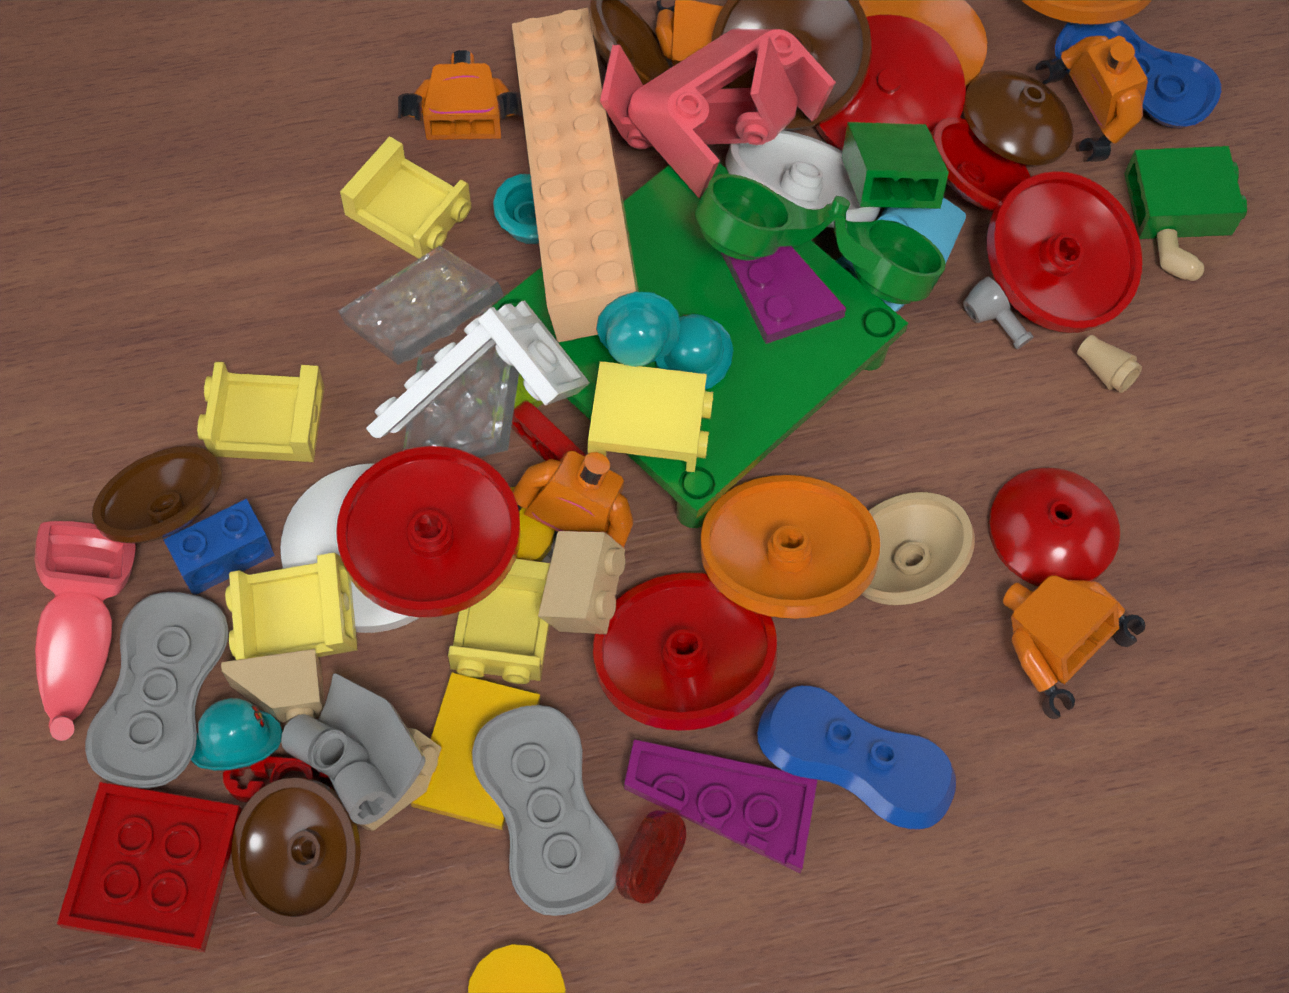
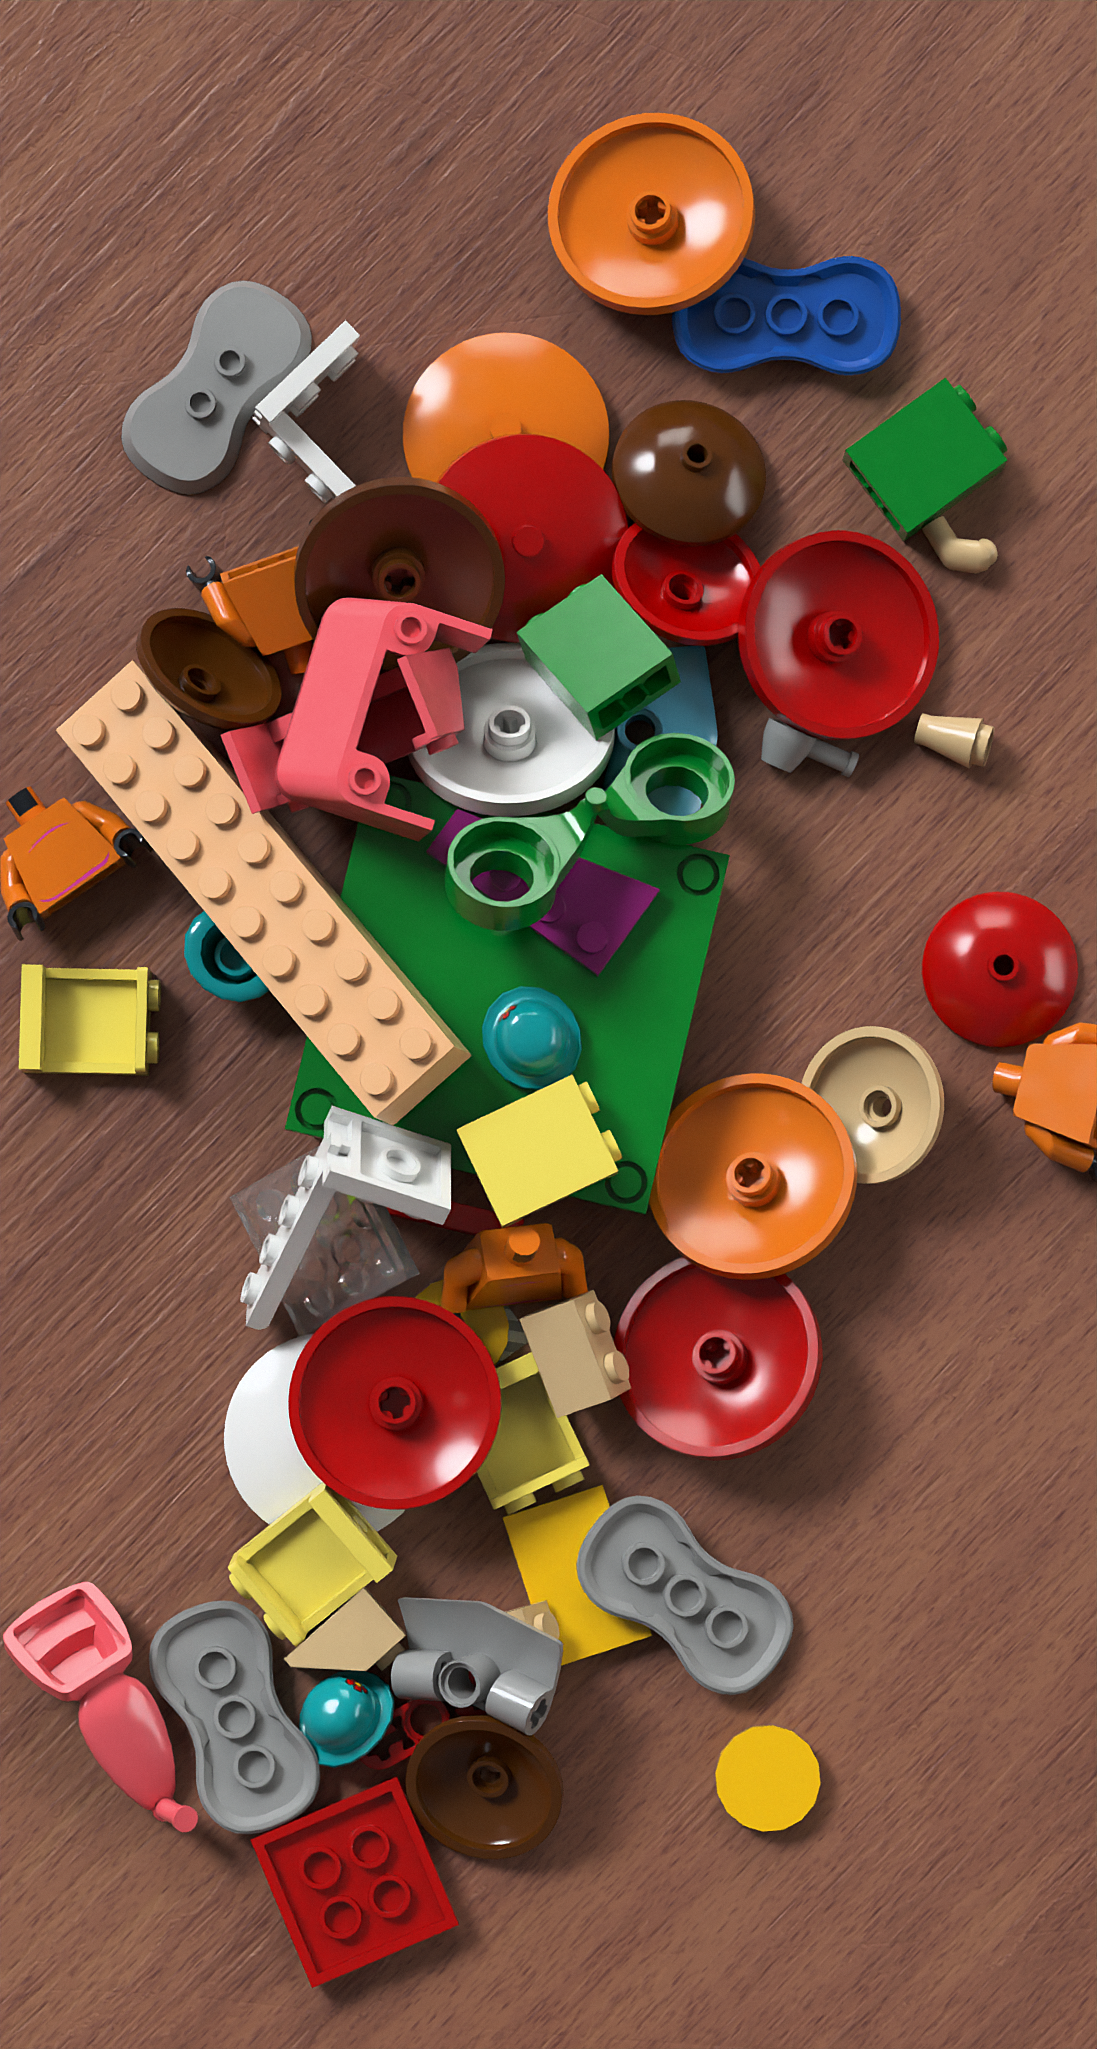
camera: 30 degrees left, 20 degrees up
(157, 495) = (68, 1524): reddish brown dish -> none
(218, 546) = (187, 1541): blue brick -> none
(262, 414) = (117, 1368): light yellow panel -> none
(421, 304) = (201, 1149): clear plate -> none
(639, 328) = (477, 1076): teal hat -> none
(651, 856) = (810, 1575): clear red plate -> none
(732, 798) = (852, 1469): magenta wing -> none
(892, 772) = (902, 1354): blue plate -> none
(1108, 83) = (770, 381): orange torso -> none

